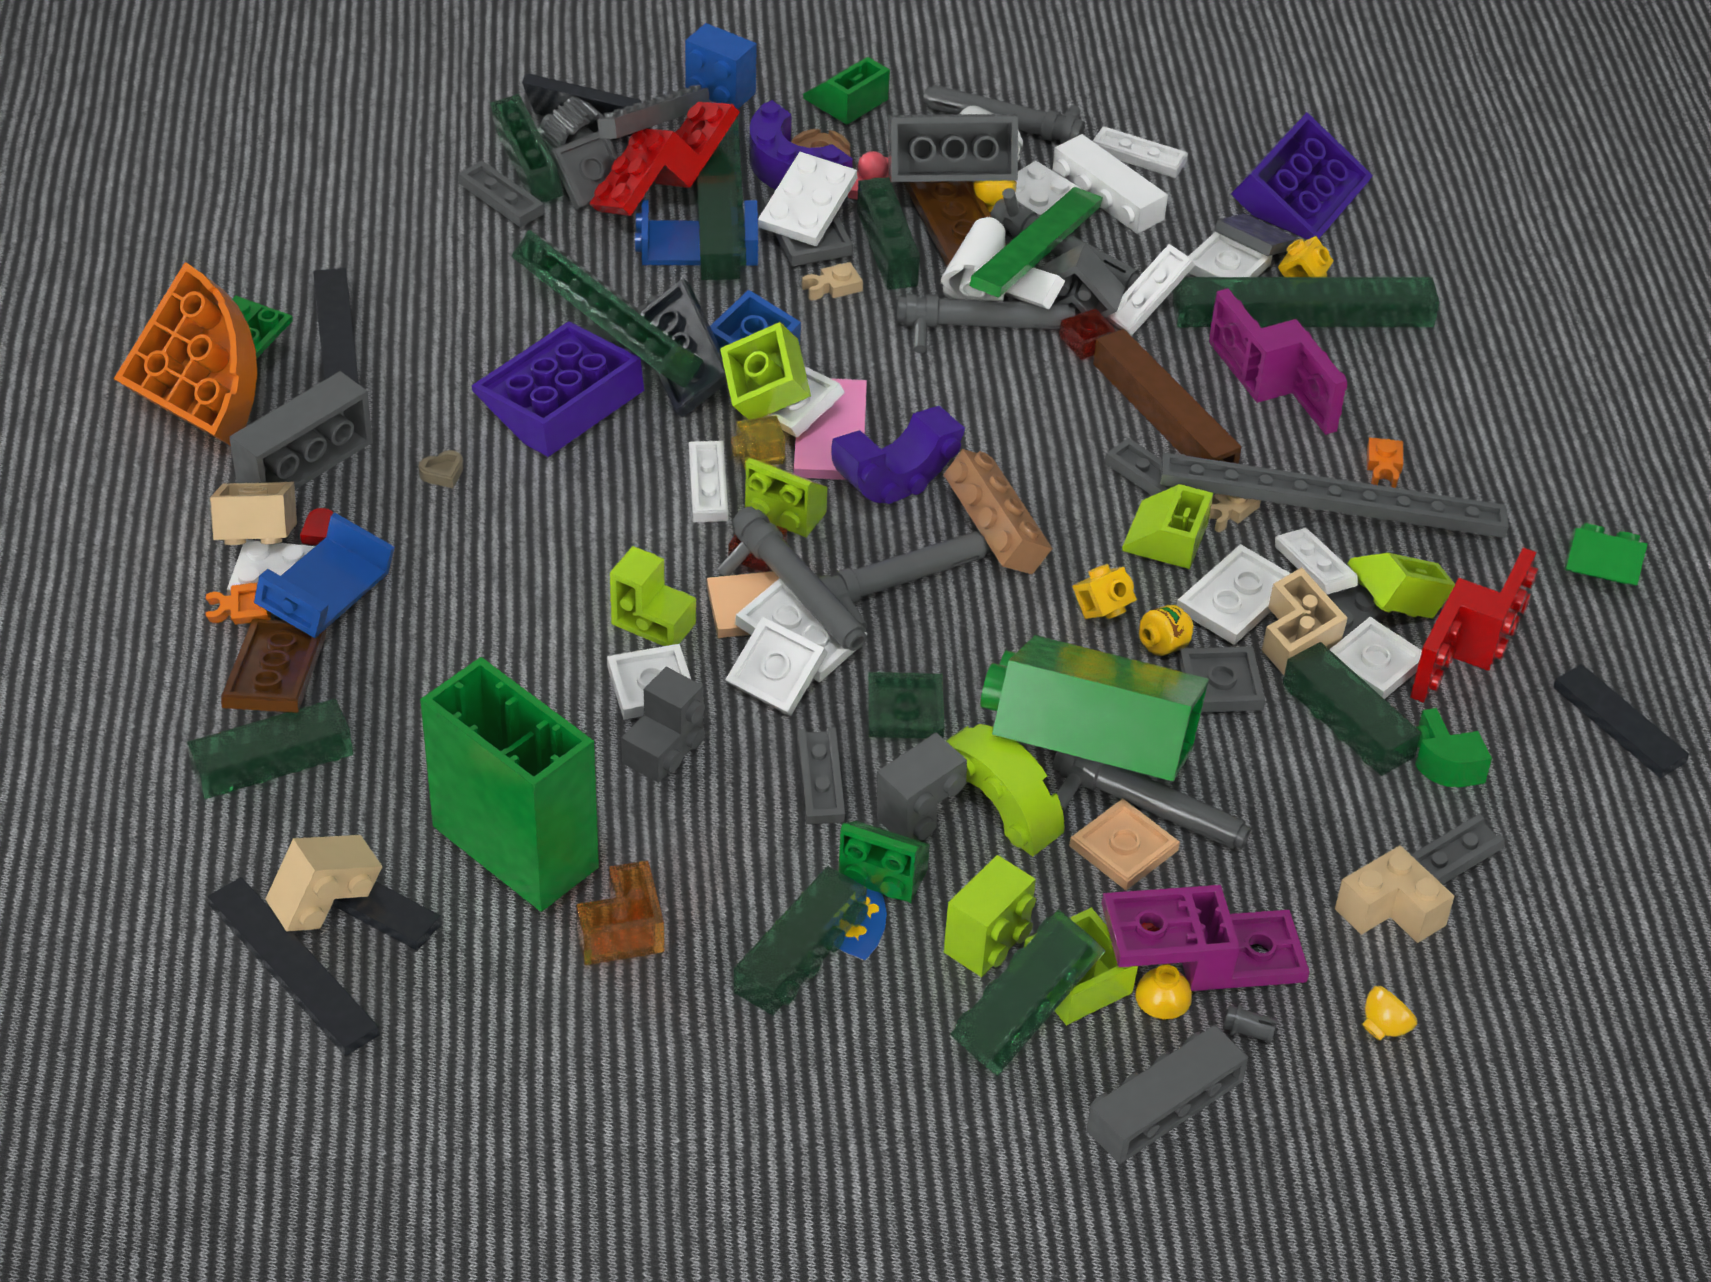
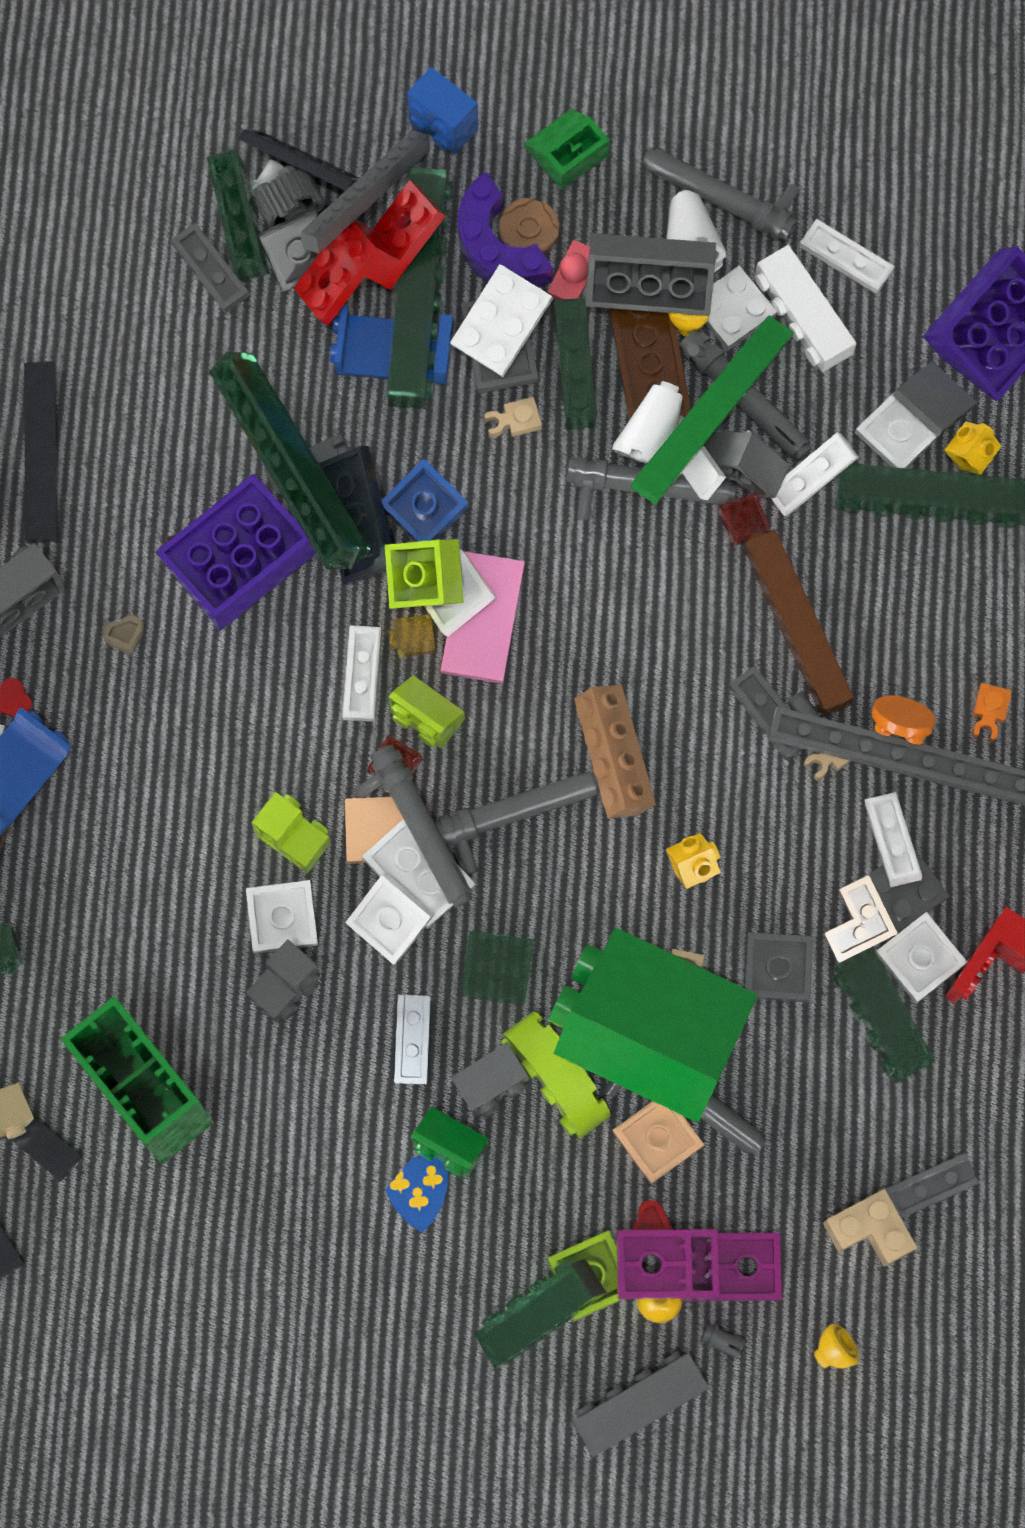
camera: 10 degrees right, 30 degrees up
(626, 923) = (234, 1187): clear orange brick -> none
(800, 941) = (370, 1216): clear green brick -> none
(905, 464) = (536, 683): dark purple brick -> none
(989, 916) = (526, 1221): lime brick -> none
(1165, 630) = (740, 907): yellow head -> none
(1170, 525) = (767, 783): lime slope -> none
(1233, 594) = (814, 867): white plate -> none
(1277, 361) = (913, 586): magenta bracket -> none
(1303, 461) = (903, 718): none -> orange tile
(1403, 583) = (962, 880): lime slope -> none
(1448, 758) = (955, 1082): green brick -> none

